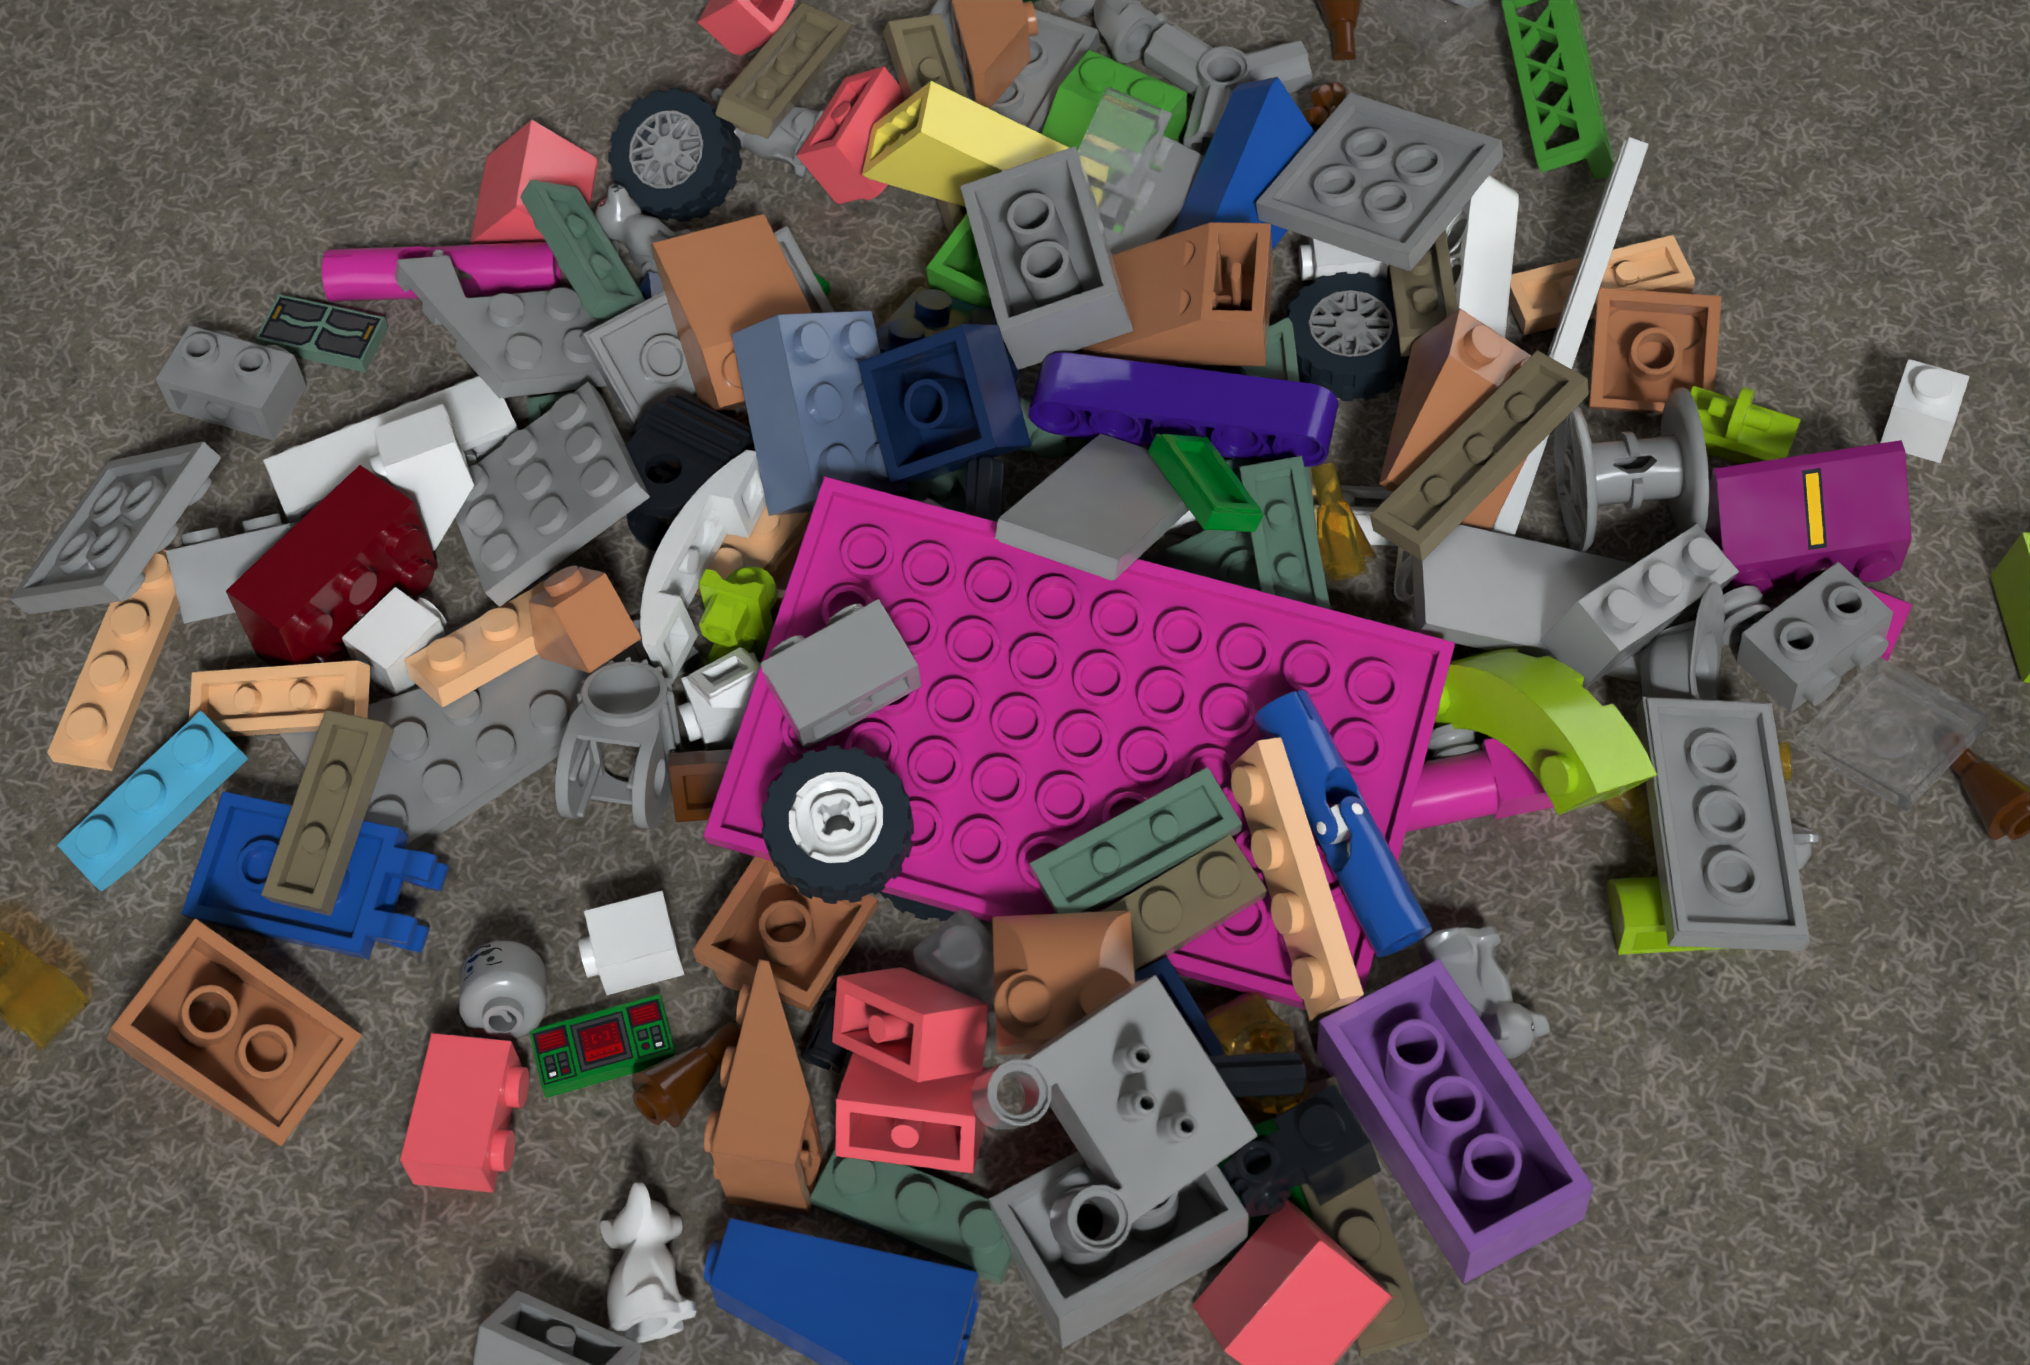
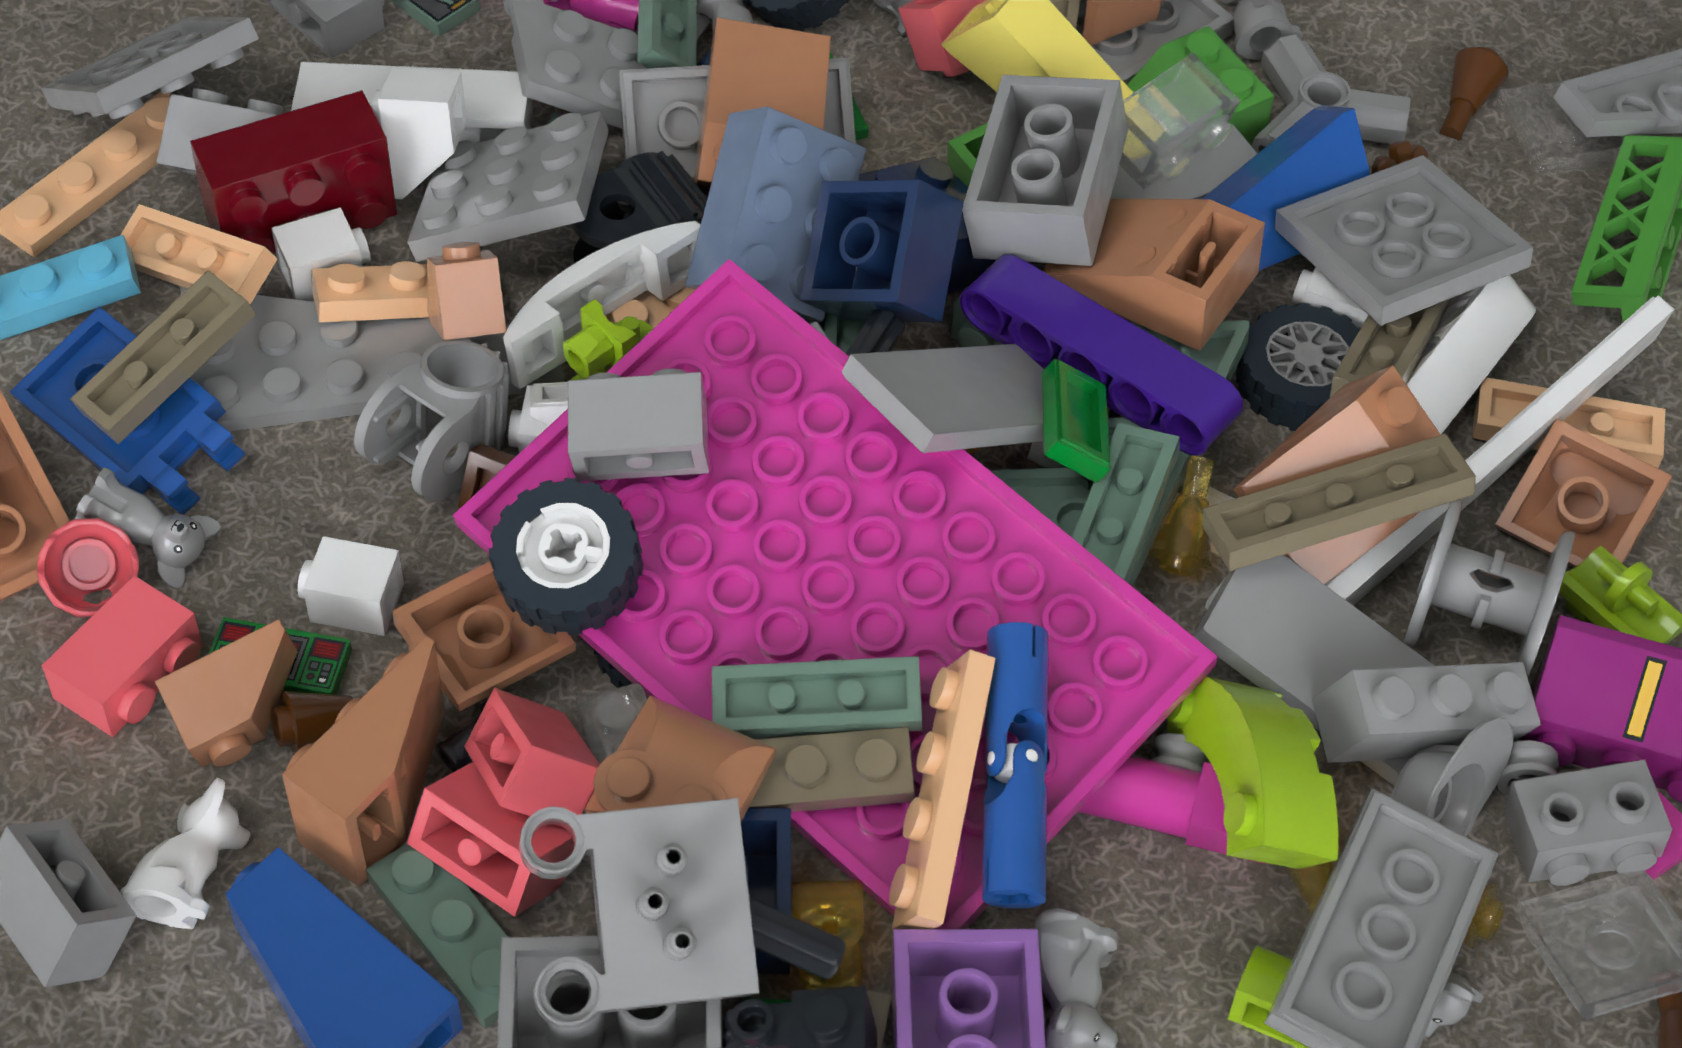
camera: 20 degrees right, 5 degrees down
(368, 1037) = (85, 559): none -> coral hair
(385, 977) = (174, 537): none -> light grey animal
(502, 990) = (219, 571): light grey head -> none
(589, 1103) = (228, 695): none -> nougat slope

